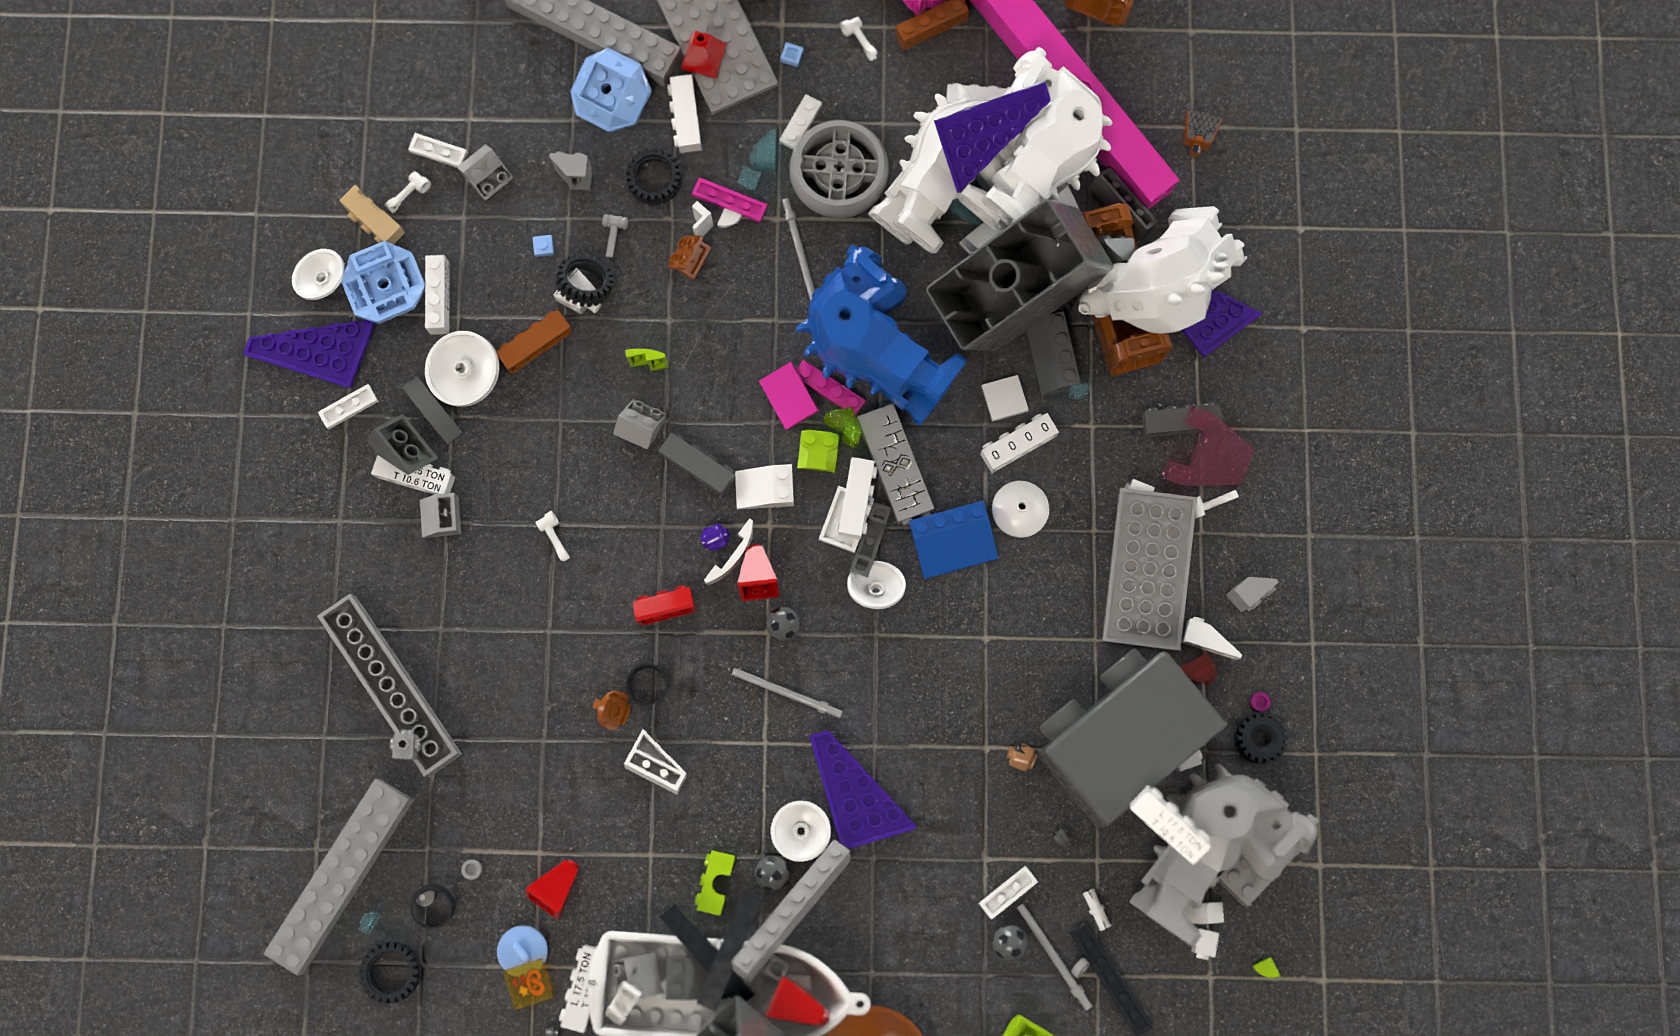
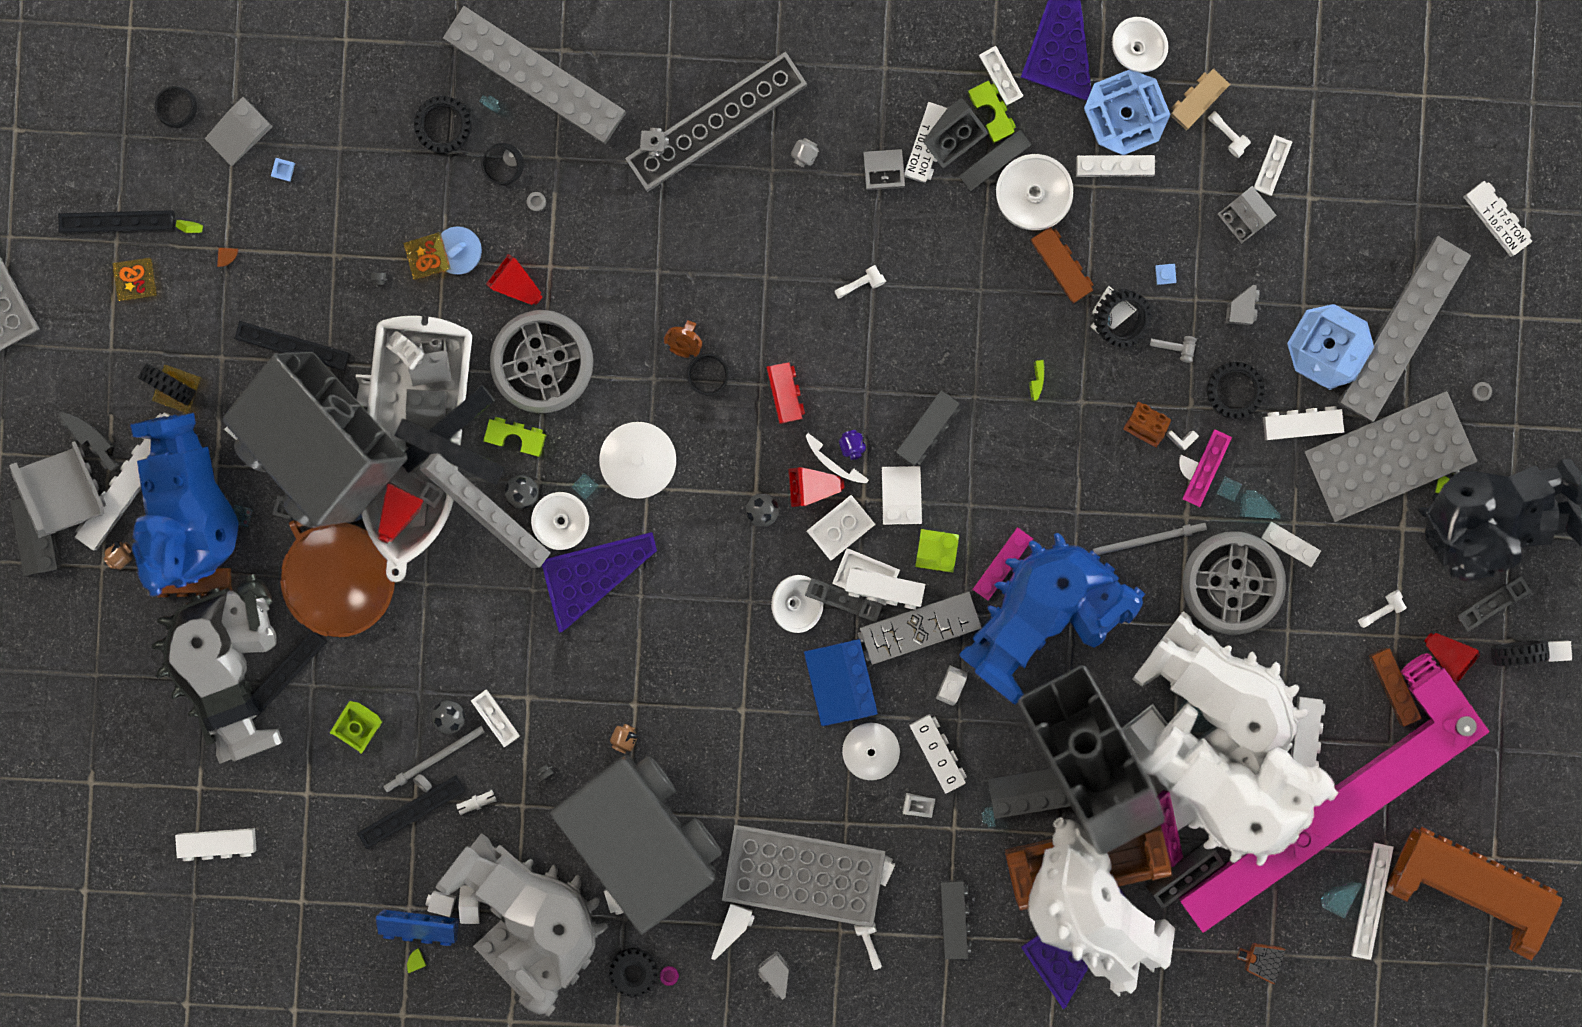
camera: 90 degrees right, 10 degrees up
(368, 418) = (986, 96): none -> lime arch
(421, 595) = (804, 152): none -> light grey head
(576, 1014) = (413, 305): white brick -> none
(639, 423) = (971, 371): light grey slope -> none
(647, 891) = (533, 377): none -> light grey wheel
(653, 764) = (629, 380): white wedge -> none
(703, 54) = (1355, 445): red slope -> none
(736, 753) = (637, 460): none -> white dish
(764, 807) = (584, 486): none -> clear light blue plate
(789, 395) = (995, 523): dark pink tile -> none
(791, 54) = (1366, 537): light blue plate -> none
(798, 546) = (841, 527): none -> white plate
(823, 707) = (680, 544): light grey bar -> none
(847, 423) = (966, 579): clear neon green hair -> none
(951, 430) = (952, 685): none -> white torso
(980, 132) = (1244, 727): dark purple wing -> none
(1004, 398) = (985, 742): white tile -> none
(1071, 461) = (918, 805): none -> white slope
(1118, 248) = (1123, 862): slope -> none
(1134, 63) = (1340, 898): none -> clear light blue slope
(1135, 37) = (1372, 901): none -> white plate
(1170, 824) = (548, 872): white brick -> none
(1200, 670) = (701, 917): clear red slope -> none
(1218, 457) = (913, 952): clear pink wedge -> none
(1231, 967) = (417, 926): none -> blue slope

